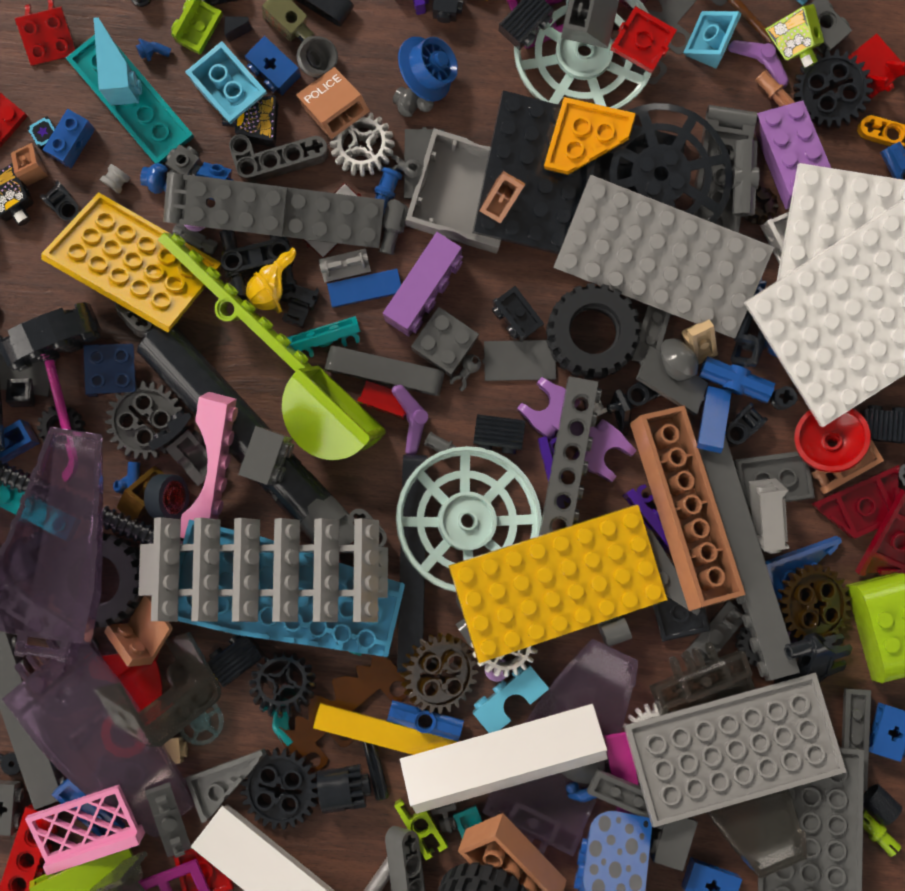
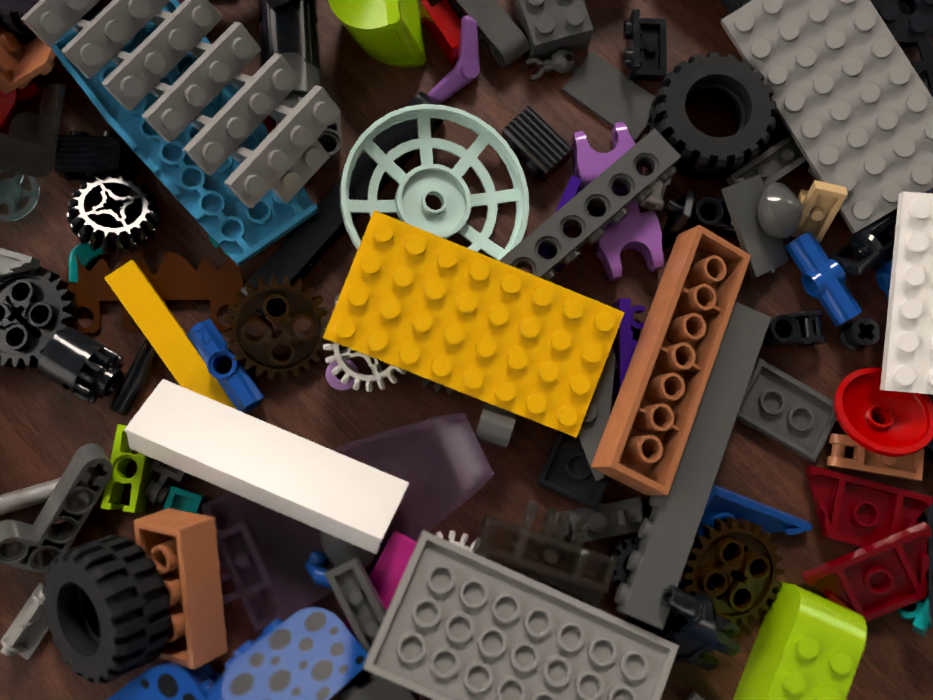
camera: 30 degrees right, 5 degrees down
(437, 443) = (465, 103): dark grey pin -> none
(491, 711) = (300, 411): medium azure arch -> none
(714, 419) = (770, 296): blue tile -> none
(769, 514) = (756, 436): light grey window -> none

